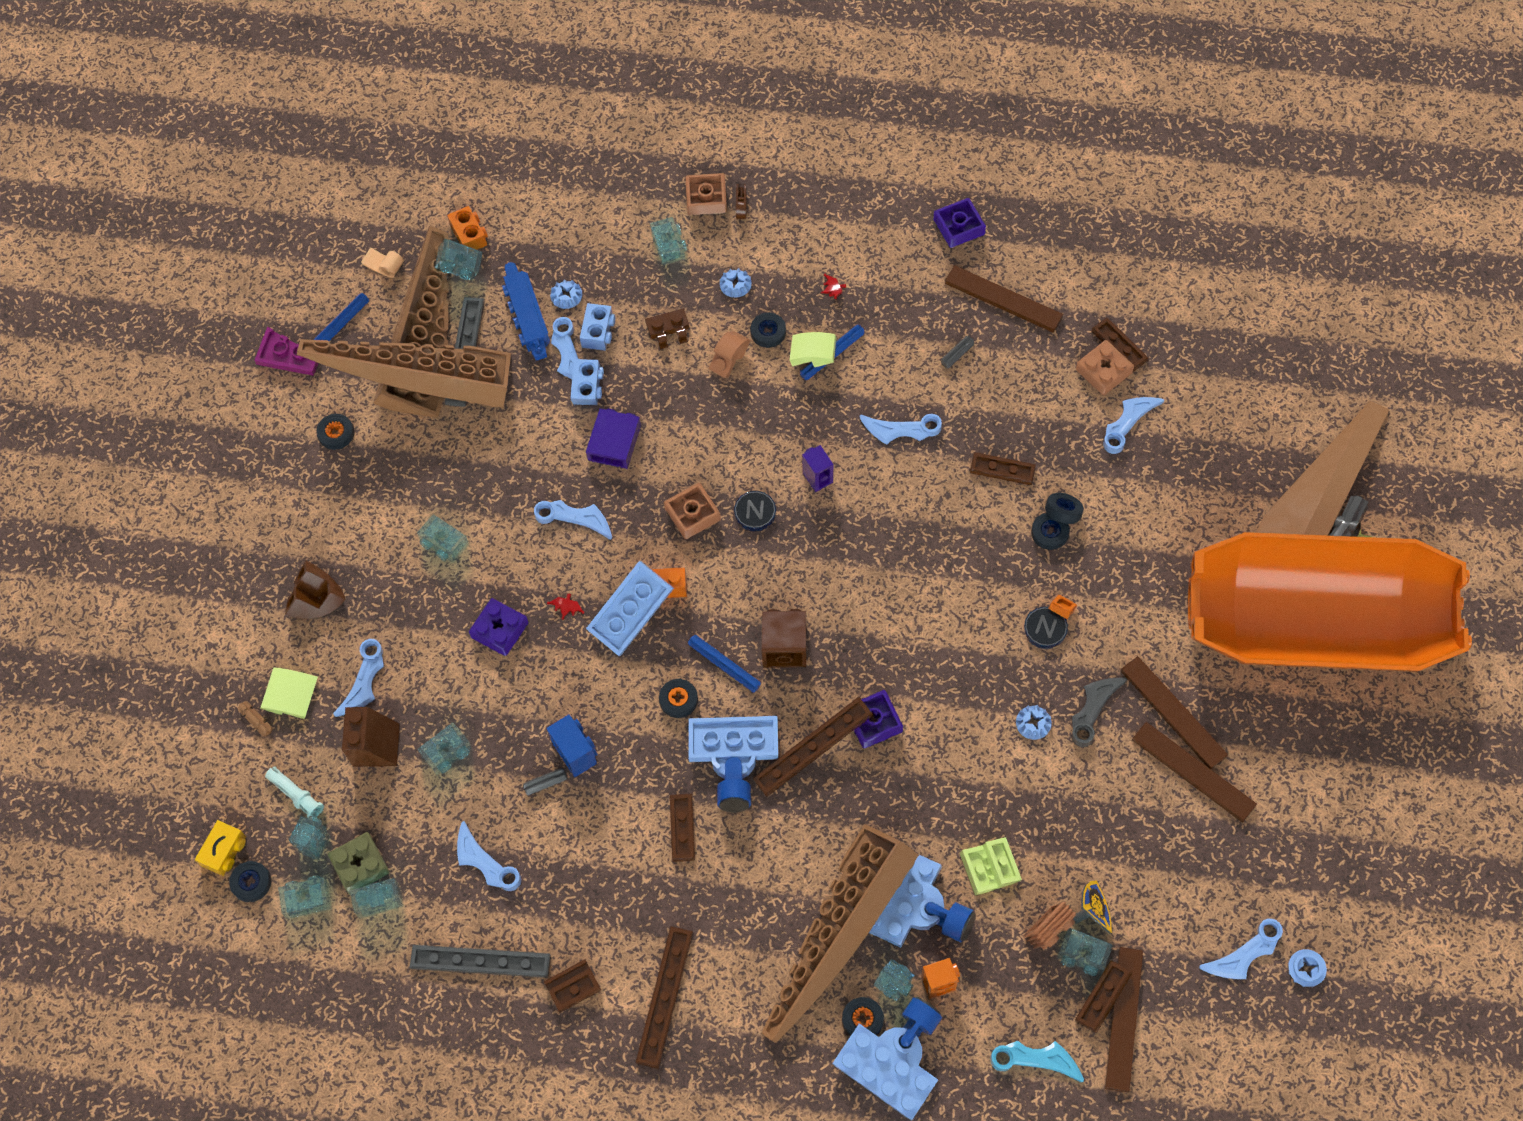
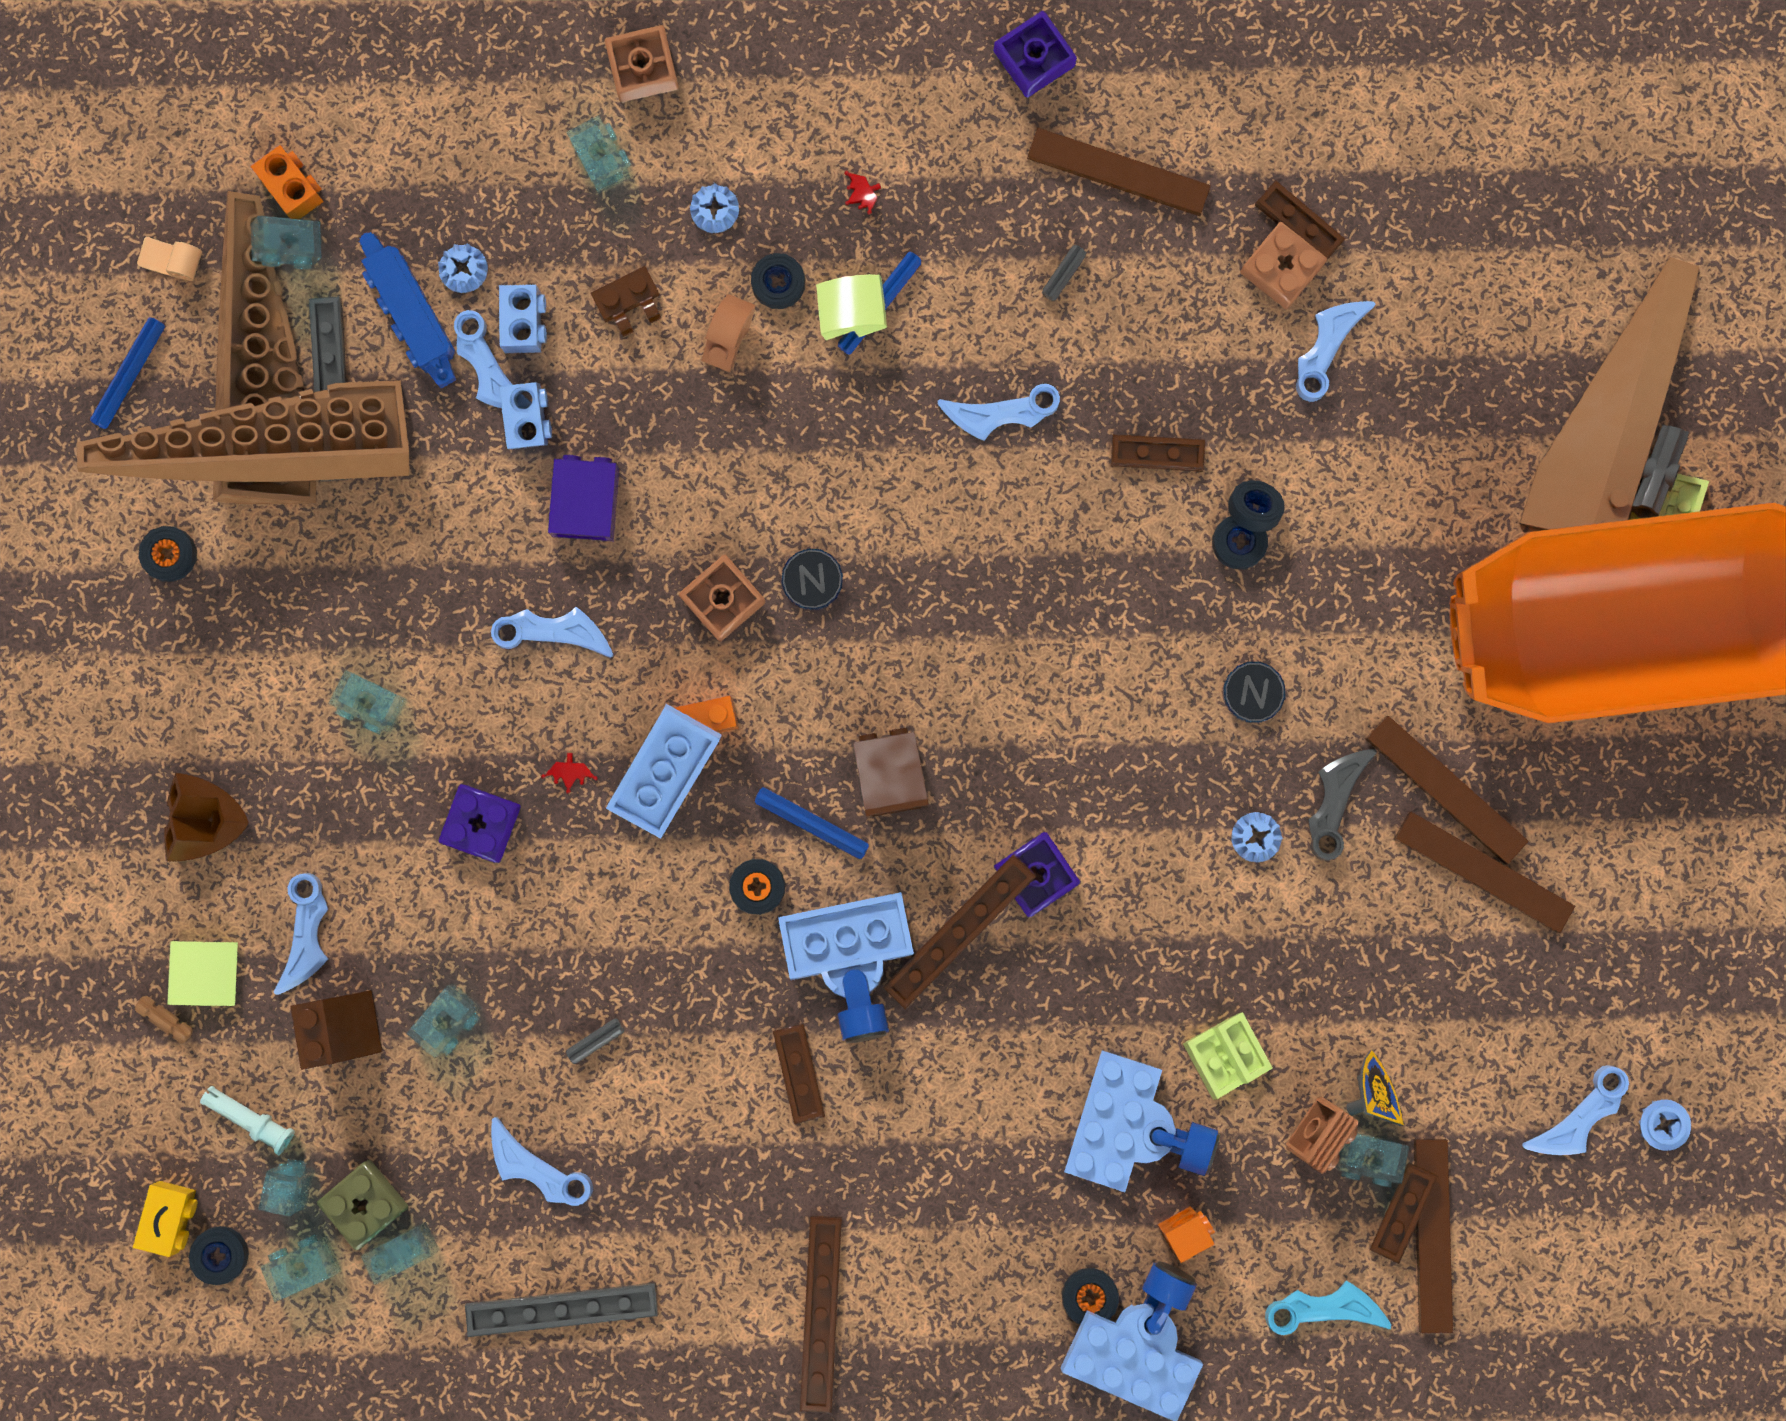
camera: 15 degrees left, 20 degrees up
(281, 353) = (50, 436): magenta wing -> none
(572, 745) = (624, 990): blue brick -> none
(572, 986) = (694, 1323): reddish brown plate -> none
(741, 201) = (697, 67): reddish brown piece -> none
(817, 468) = (892, 503): dark purple brick -> none
(870, 877) = (1063, 1128): medium nougat wedge -> none
(894, 980) = (1125, 1243): clear light blue brick -> none
(1062, 606) = (1274, 658): orange tile -> none

